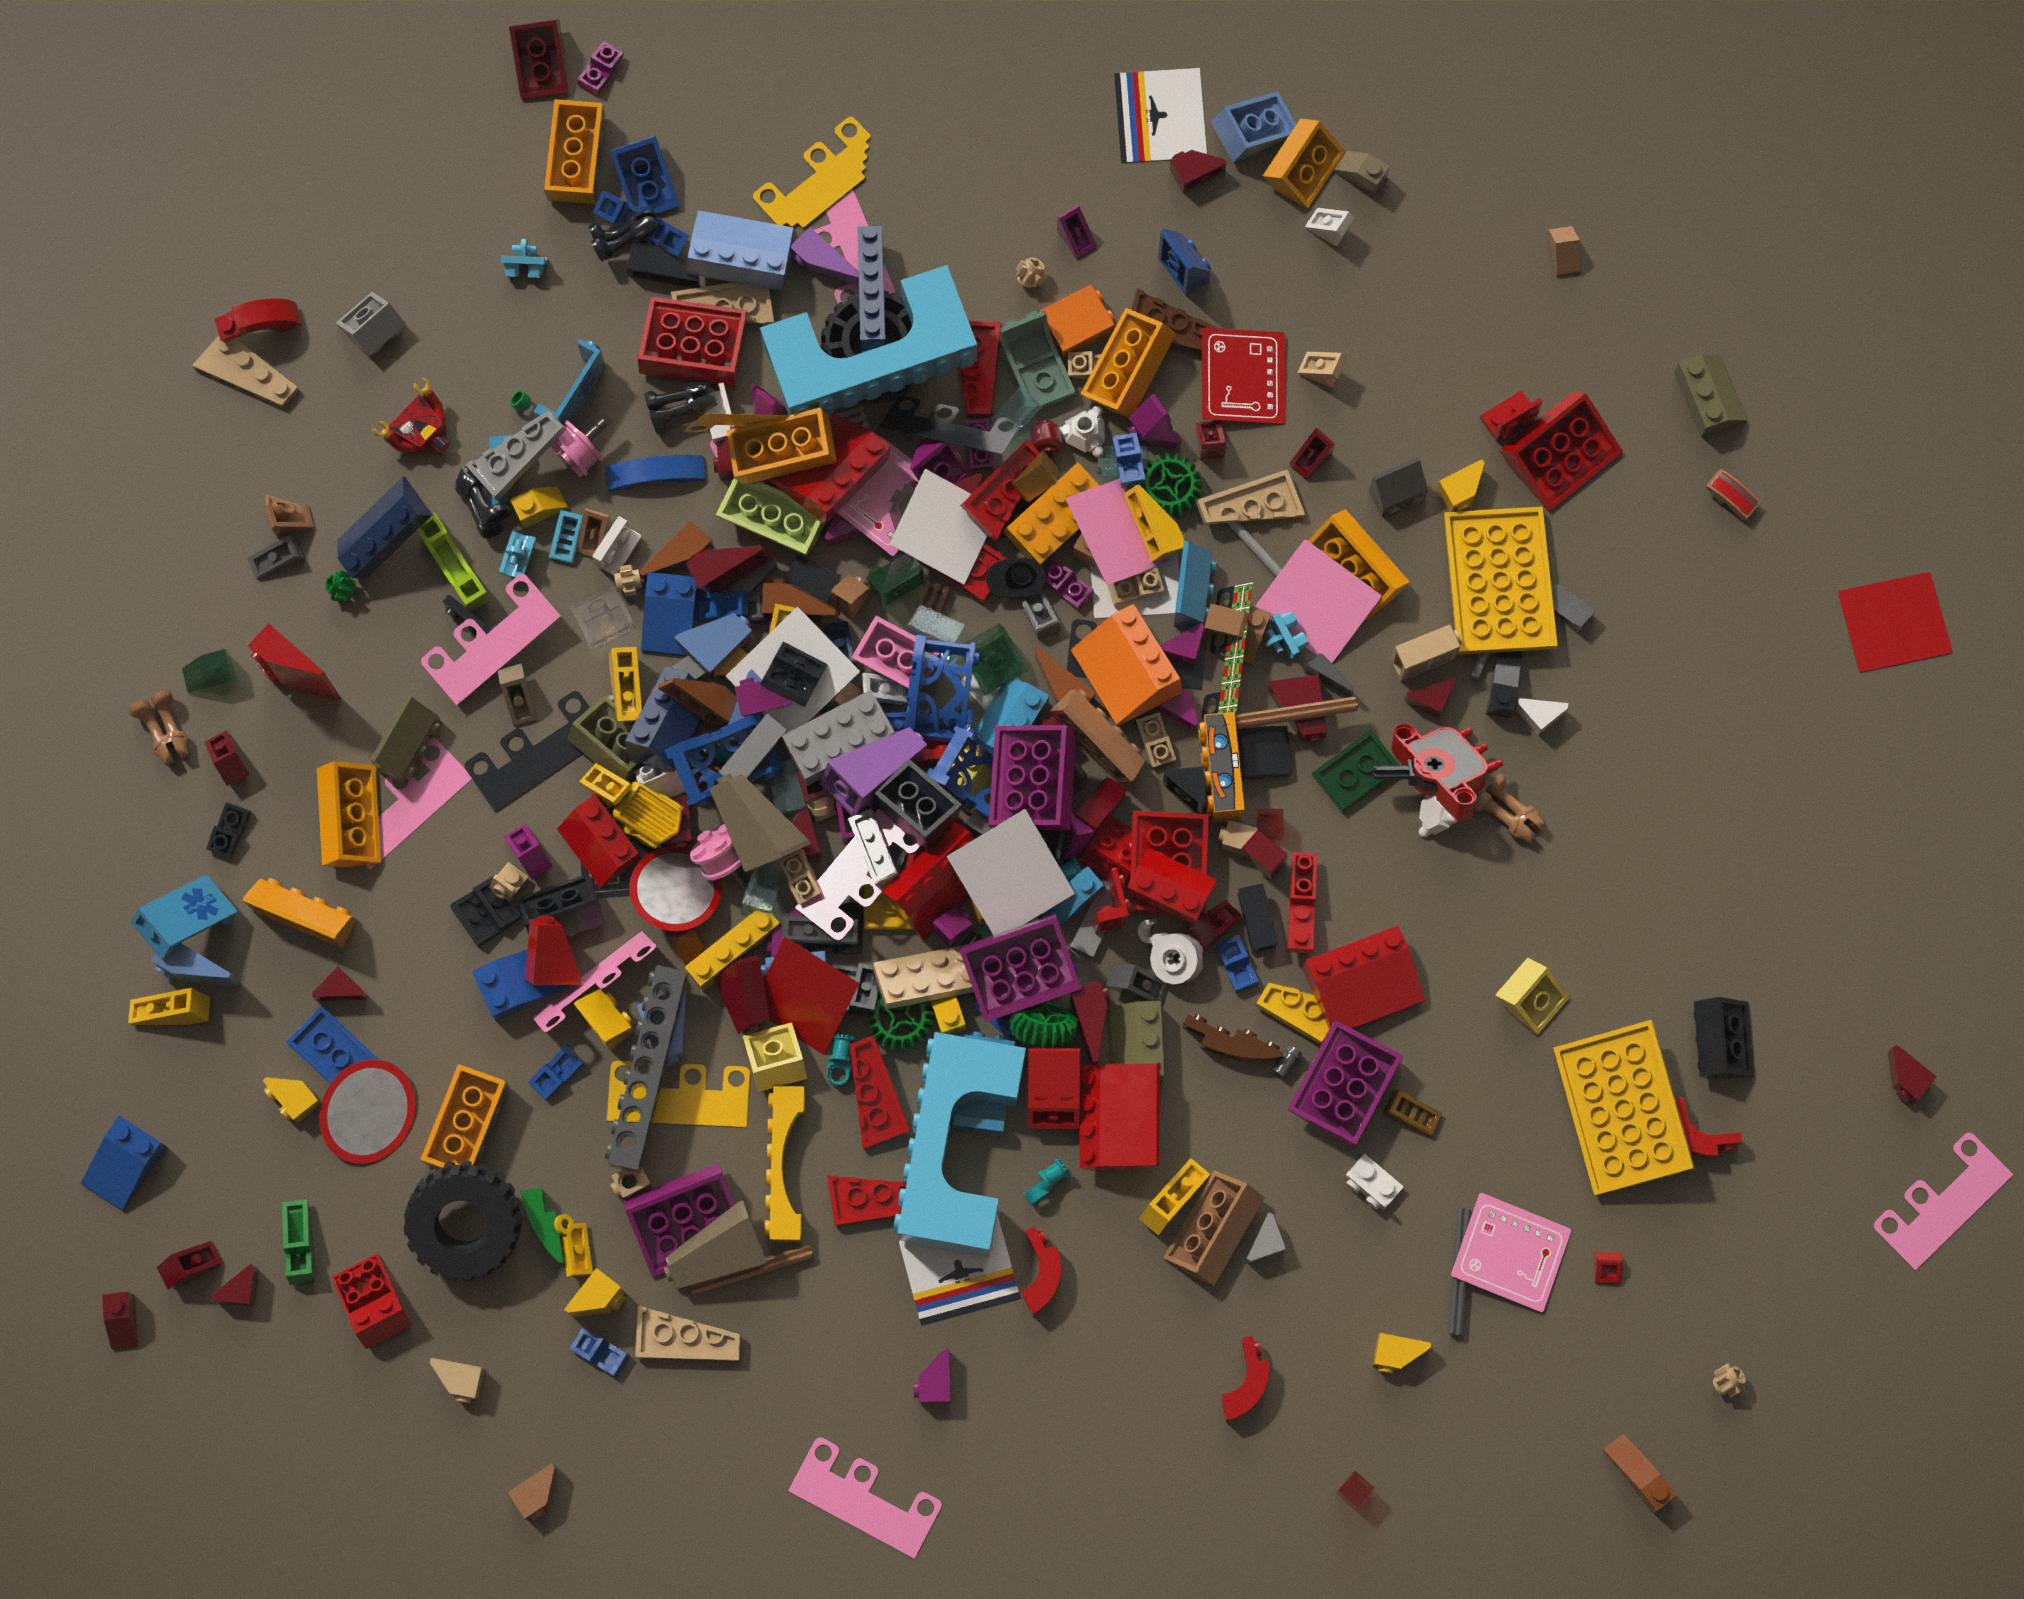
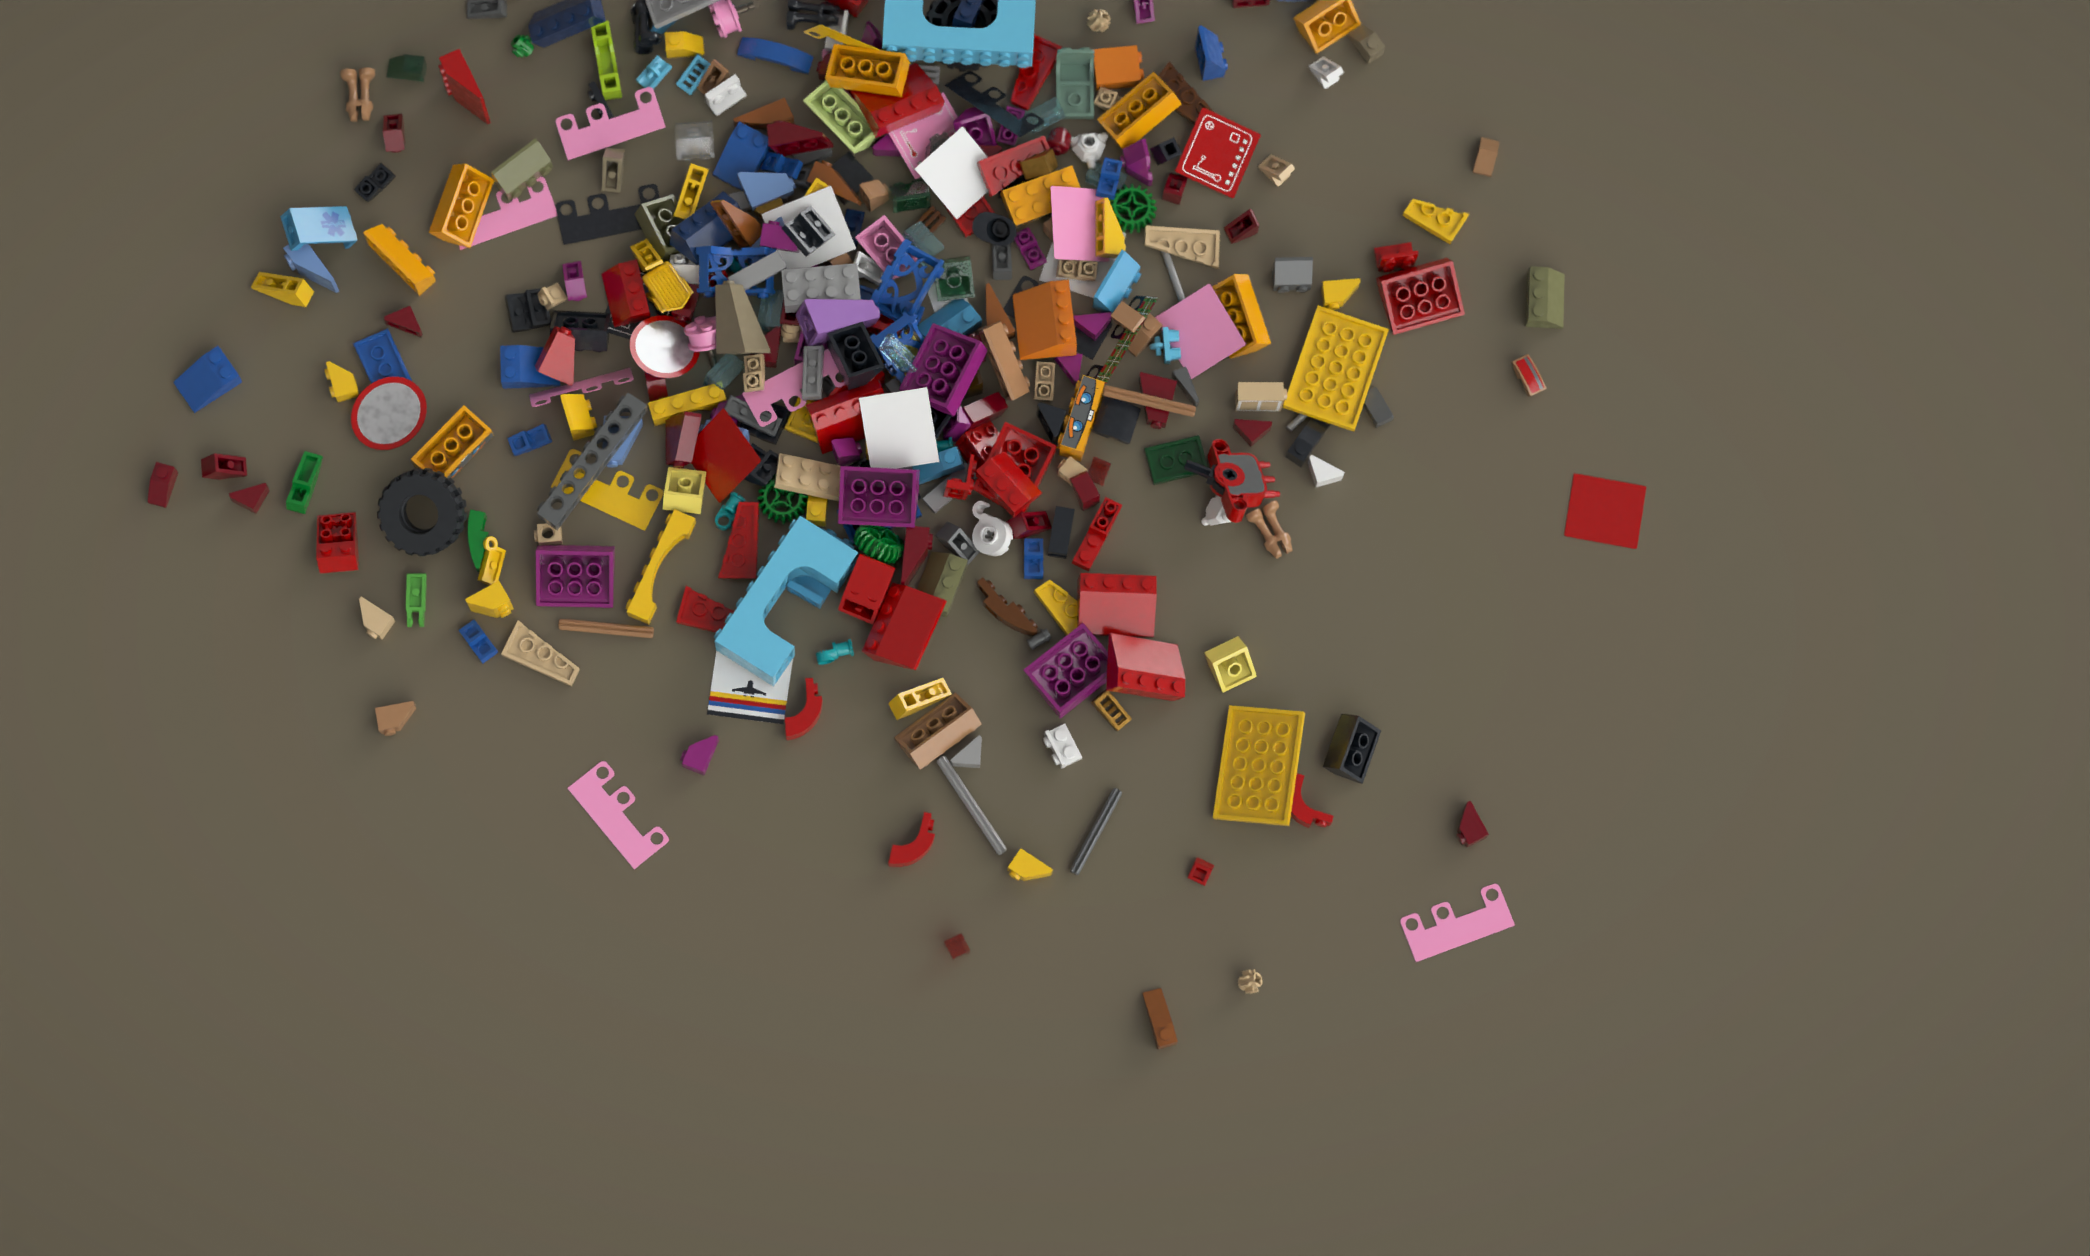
camera: 15 degrees right, 0 degrees up
(498, 1329) = (416, 597): none -> bright green hinge
(628, 580) = (723, 122): tan gear -> none
(717, 1250) = (588, 604): dark tan slope -> none
(970, 781) = (897, 354): none -> clear light blue panel
(1181, 399) = (1165, 151): none -> black brick
(1294, 1303) = (971, 805): none -> light grey axle
(1434, 1045) = (1144, 668): none -> slope
(1511, 1252) = (1137, 832): bright pink sticker -> none
(1542, 351) = (1436, 220): none -> yellow wing

